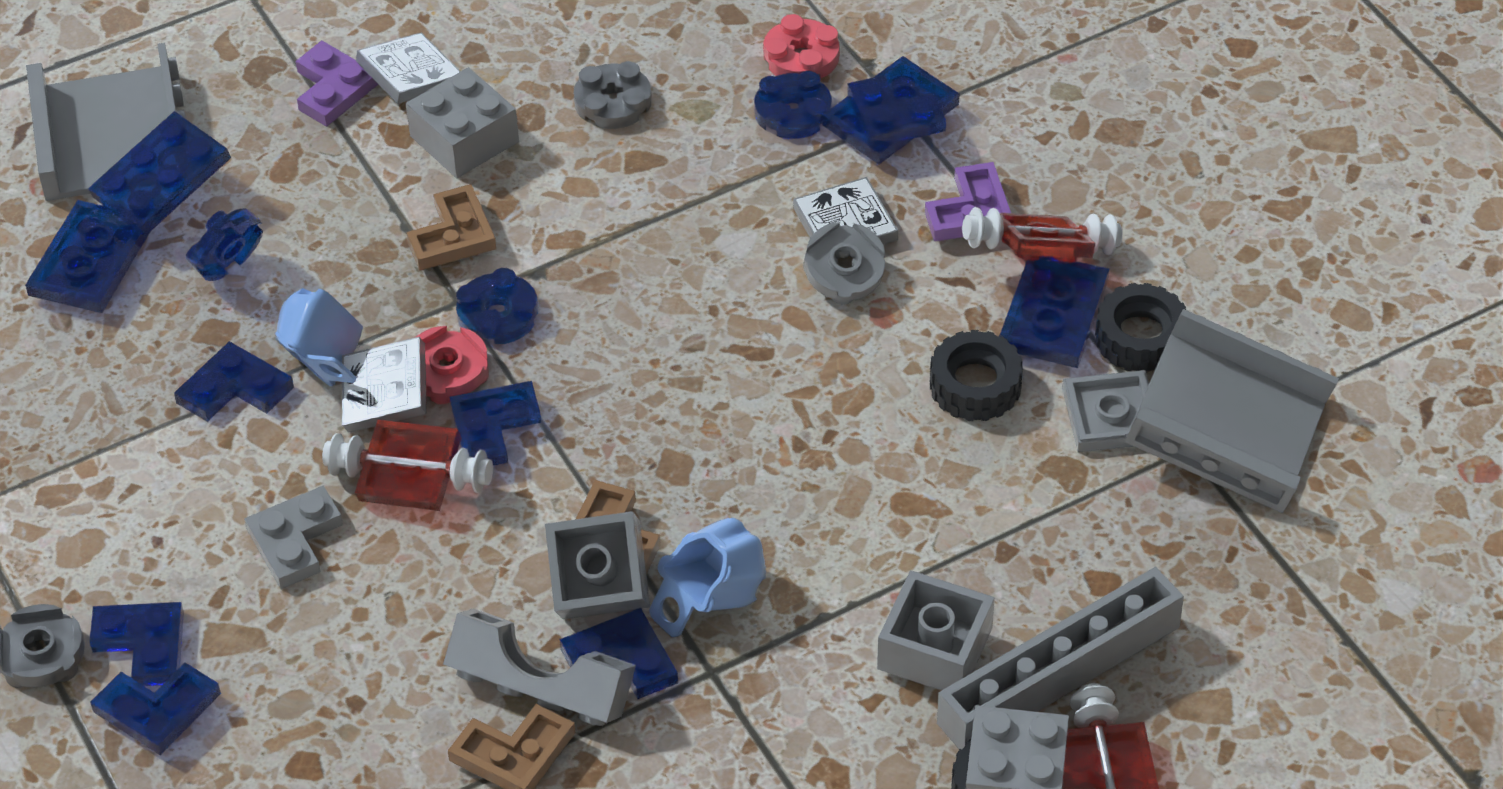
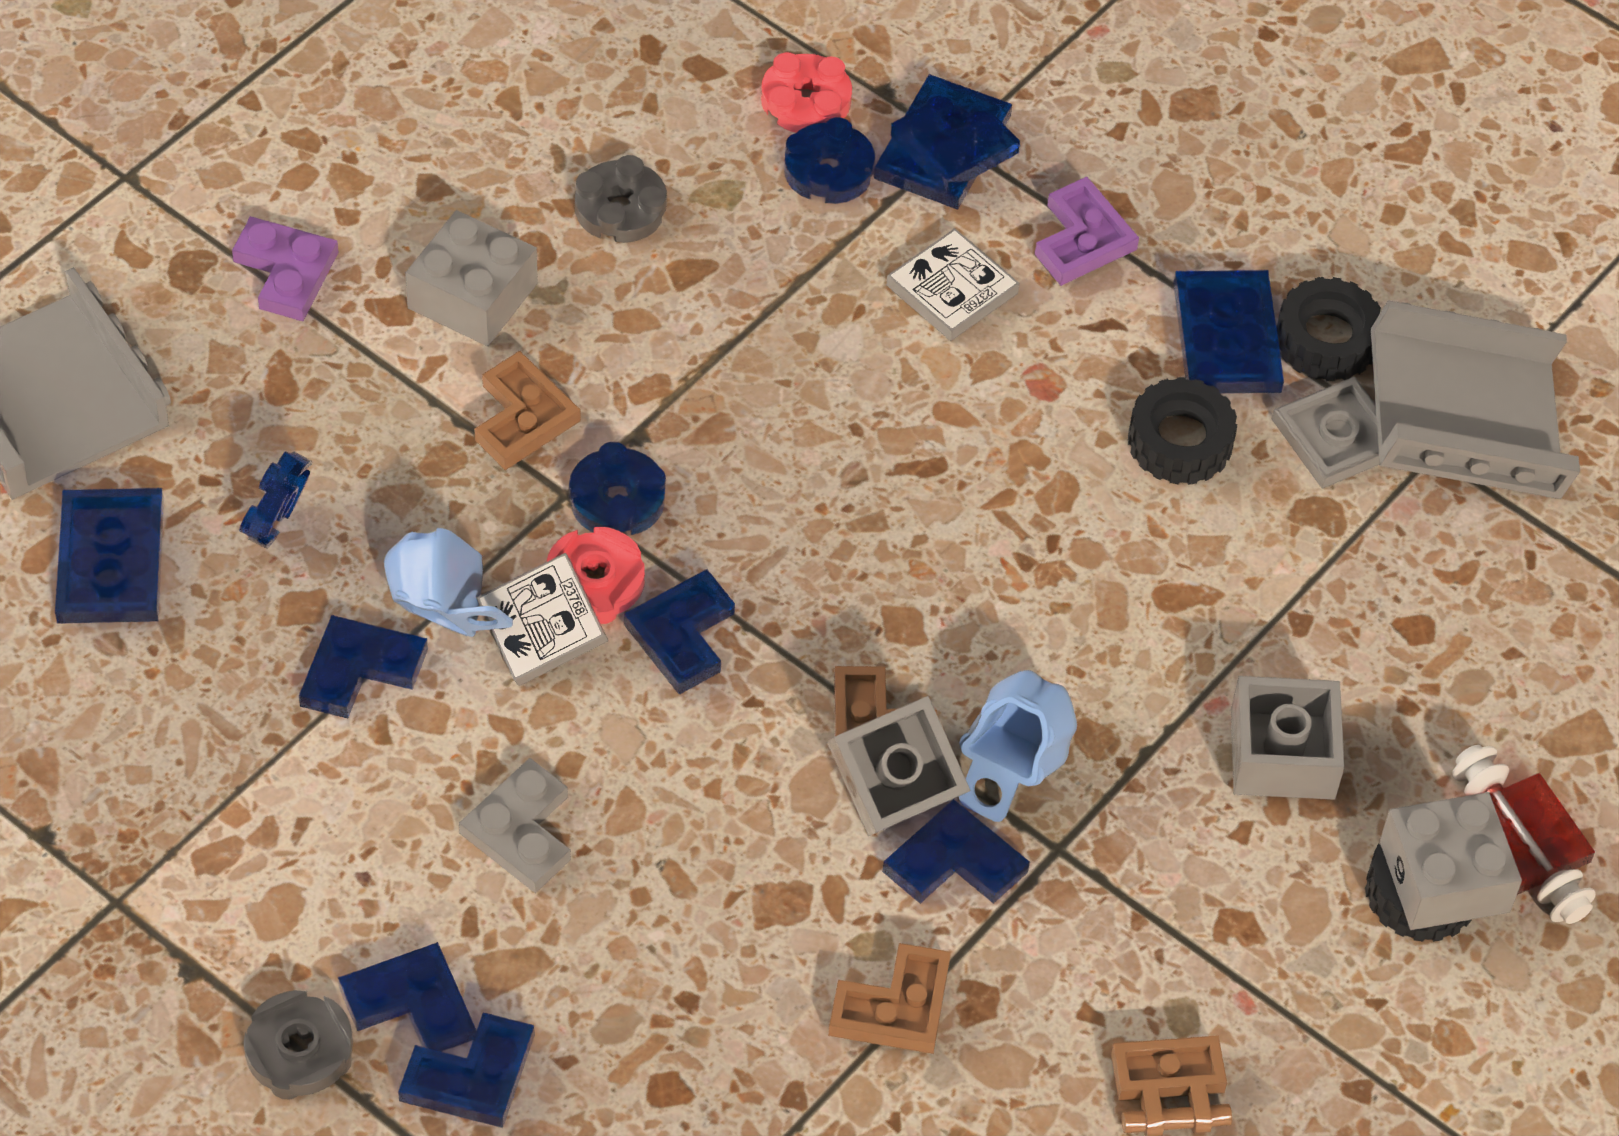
camera: 25 degrees left, 5 degrees up
(159, 173) = (154, 433): clear blue plate -> none
(406, 66) = (372, 225): tile -> none
(407, 464) = (617, 706): clear red plate -> none
(488, 650) = (948, 907): light grey arch -> none
(844, 283) = (969, 356): light grey plate -> none
(1042, 234) = (1185, 249): plate -> none
(1065, 654) = (1427, 729): light grey brick -> none

